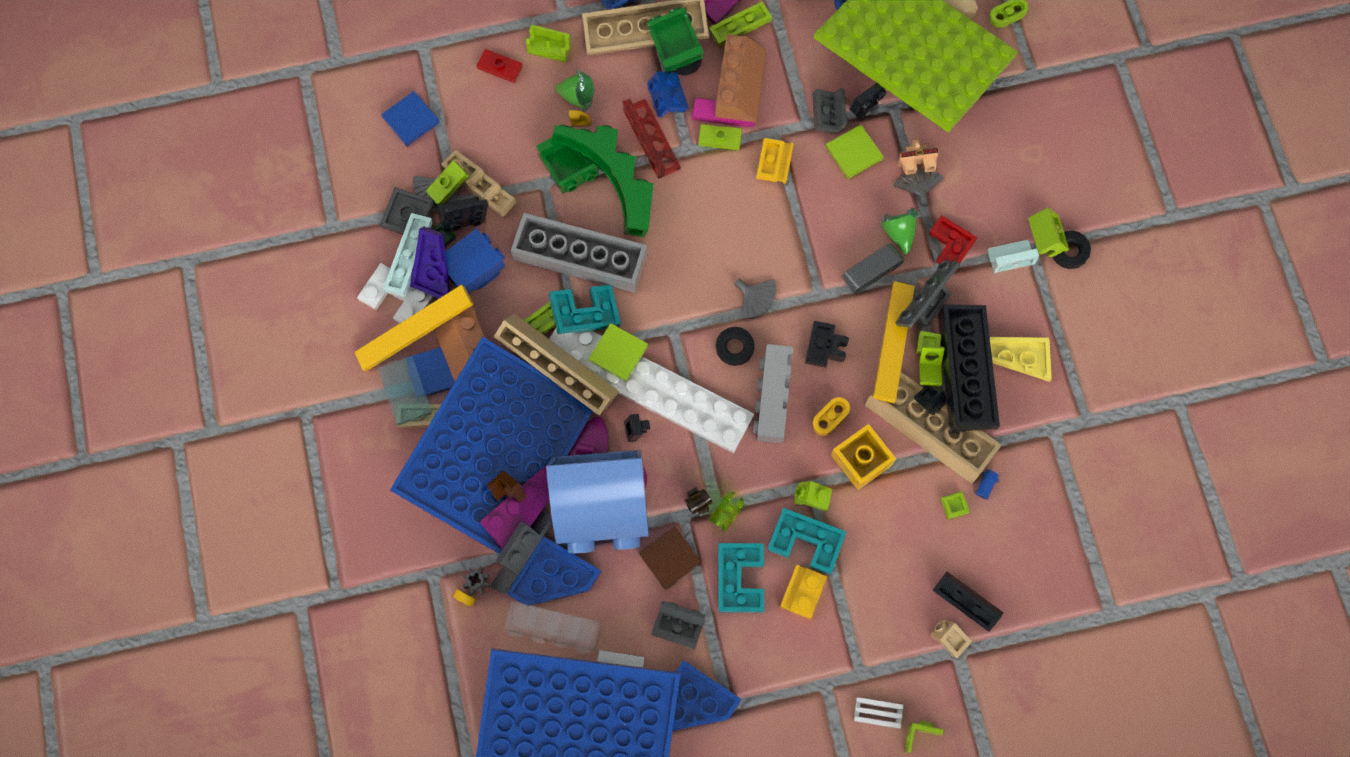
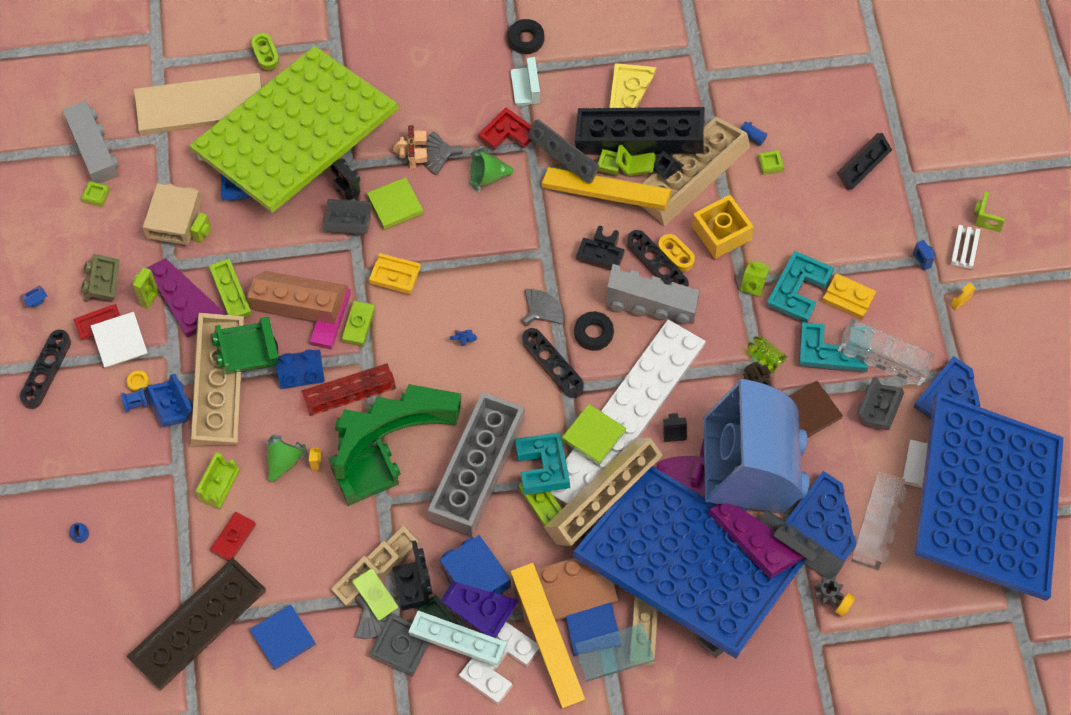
camera: 85 degrees left, 10 degrees down
(417, 50) = (196, 623): none -> dark brown plate
(506, 485) = (736, 539): reddish brown bracket -> none
(698, 313) = (553, 362): none -> black beam
(714, 229) = (464, 336): none -> blue plant
(734, 627) = (886, 352): none -> clear brick
(816, 398) = (655, 264): none -> black beam
(817, 711) = (967, 294): none -> yellow tile
(860, 668) = (924, 254): none -> blue plate
(872, 268) = (526, 199): dark grey beam -> none
(951, 637) = (896, 179): tan bracket -> none
(1048, 232) = (510, 48): lime hinge -> none

